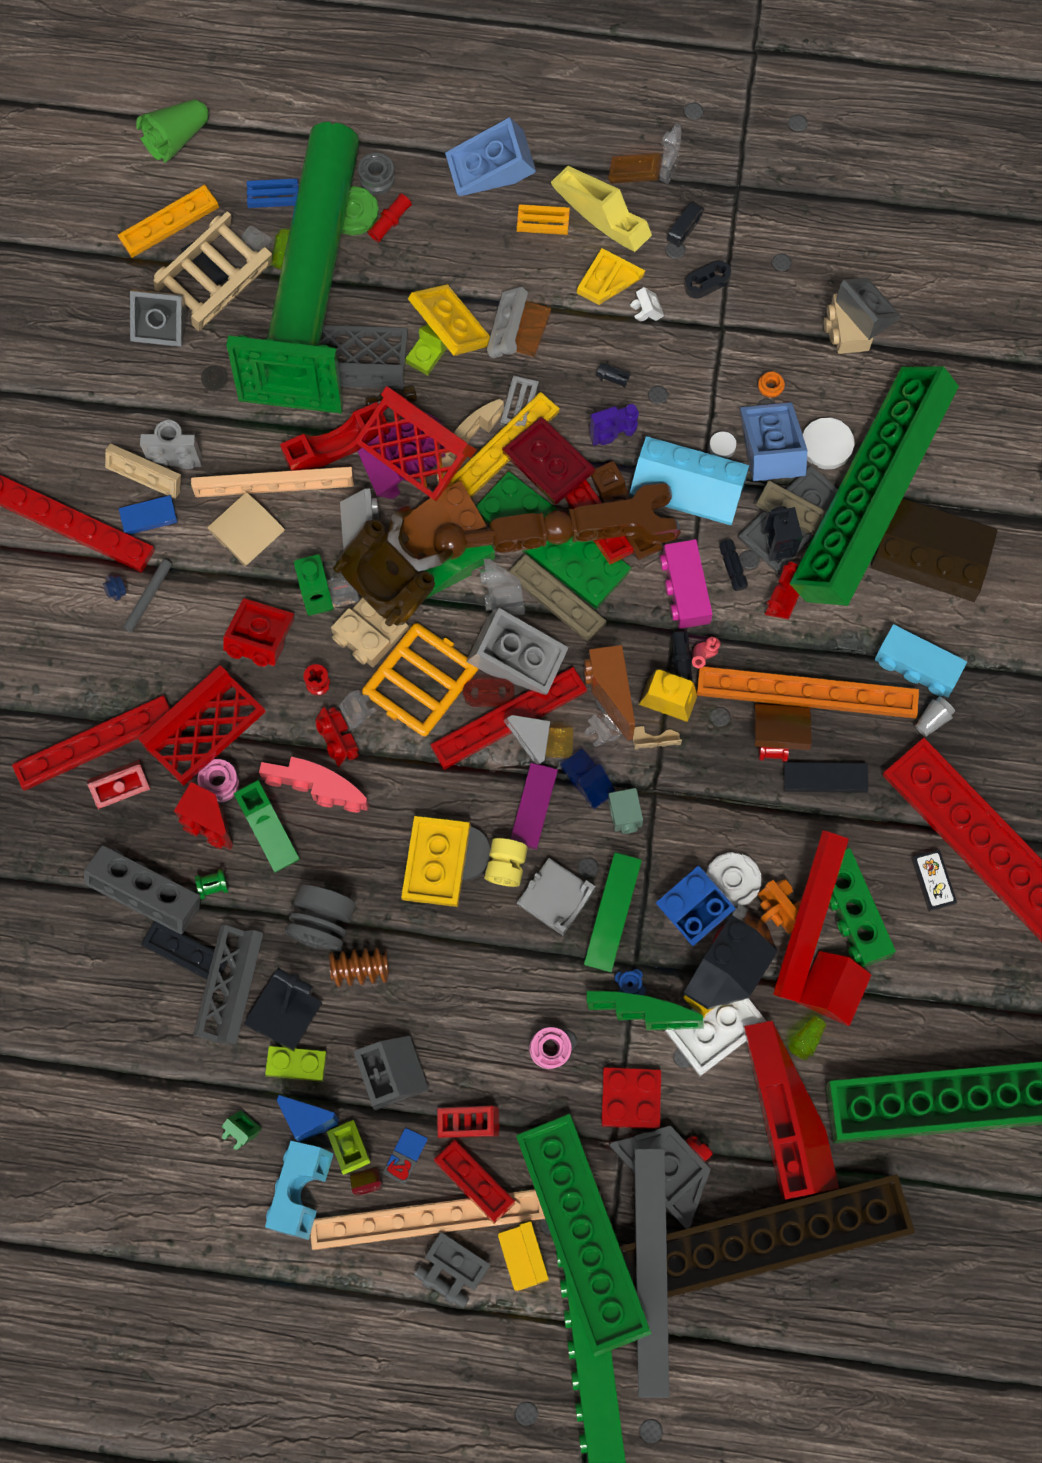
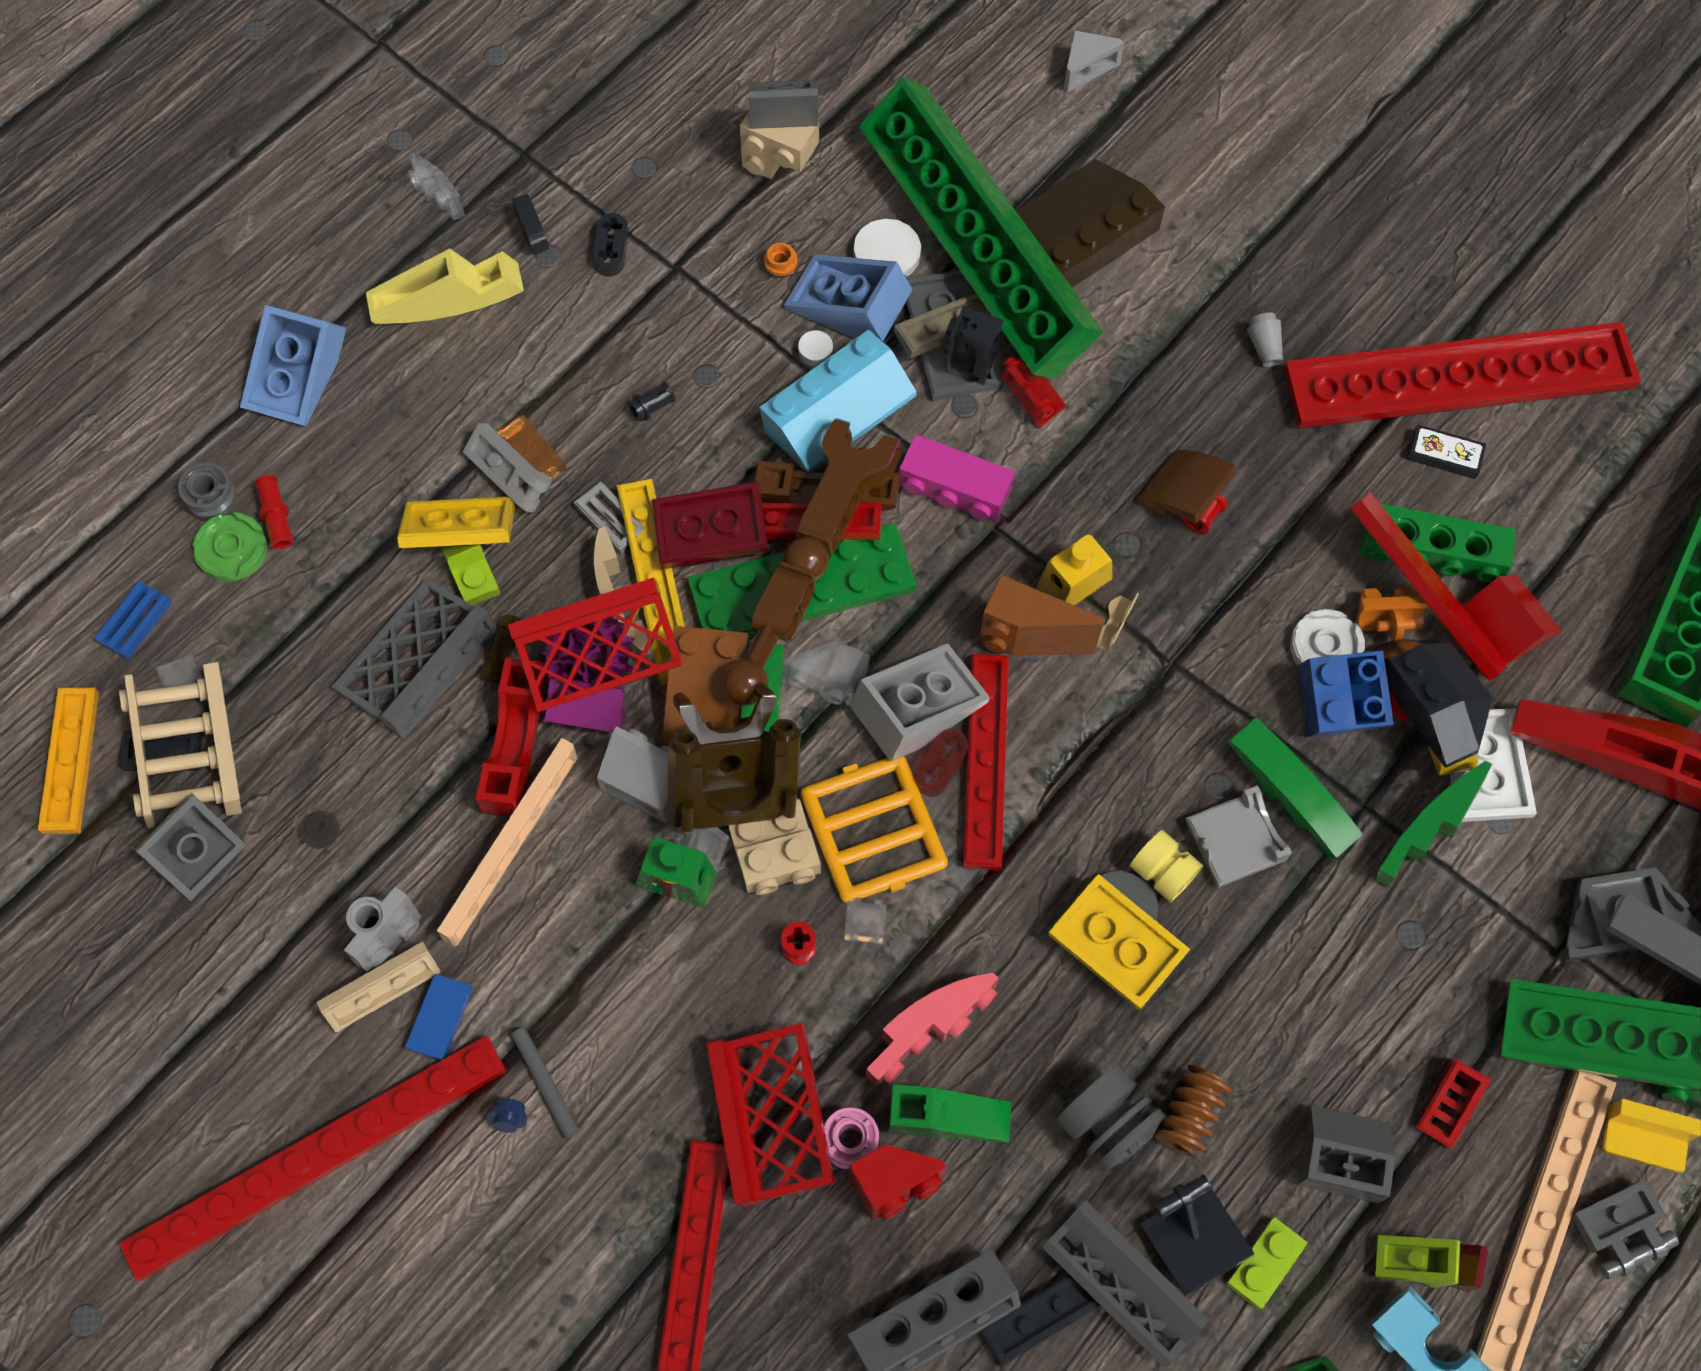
camera: 60 degrees left, 5 degrees down
(118, 784) = (768, 1269): red slope -> none
(204, 890) = (978, 1227): green bush -> none
(245, 529) = (544, 910): tan slope -> none
(257, 632) = (691, 975): red plate -> none
(279, 248) = (216, 646): clear neon green cone -> none
(290, 363) = (382, 721): green piece -> none
(306, 1120) = (1360, 1290): blue slope -> none
(330, 725) = (899, 969): red hinge -> none
(405, 1156) = (1451, 1202): sticker -> none
(474, 1181) = (1532, 1137): red tile -> none
(531, 735) = (1032, 746): light grey slope -> none
(534, 805) = (1111, 797): magenta tile -> none
(543, 216) = (402, 355): light orange tile -> none
(557, 598) = (878, 620): dark tan tile -> none
(560, 743) = (1051, 724): clear yellow tile -> none
(563, 1048) = (1430, 945): bright pink wheel -> none
(588, 778) = (1115, 720): clear blue slope -> none
(604, 727) = (1069, 664): clear tile -> none
(608, 277) = (530, 336): yellow wing -> none
(609, 422) = (717, 429): dark purple plate -> none
(625, 811) = (1182, 702): sand green brick -> none
(631, 976) = (1392, 814): blue plate -> none
(631, 1098) = (1521, 904): red plate -> none
(635, 168) = (424, 229): clear orange tile -> none
(649, 303) = (597, 316): white tile -> none
(681, 655) = (1034, 536): black pin -> none
(700, 1149) = (1634, 862): red tile -> none
(705, 651) = (1045, 510): coral arm -> none
(733, 565) = (963, 422): black axle -> none
(807, 1038) = (1556, 679): clear neon green cone -> none
(808, 692) = (1159, 440): orange plate -> none
(826, 777) = (1266, 483): black tile -> none
(920, 661) = (1197, 313): medium azure brick -> none

